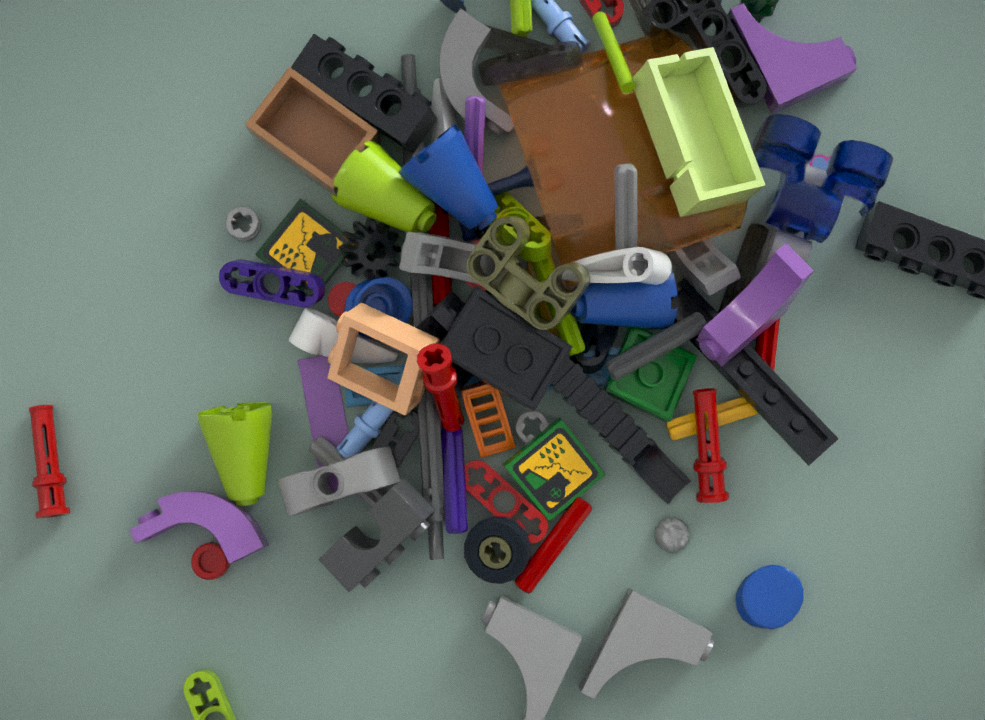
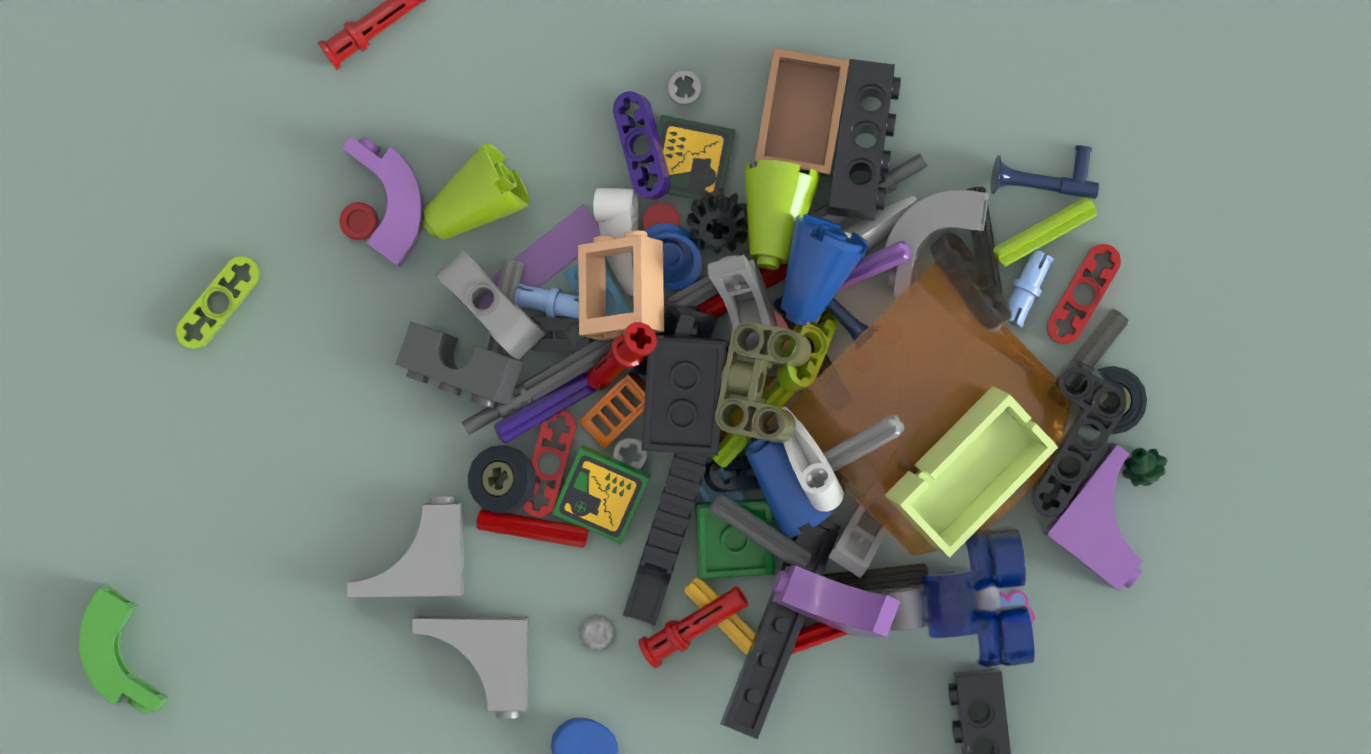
camera: 65 degrees right, 5 degrees up
(613, 53) = (1015, 355): lime bar -> none

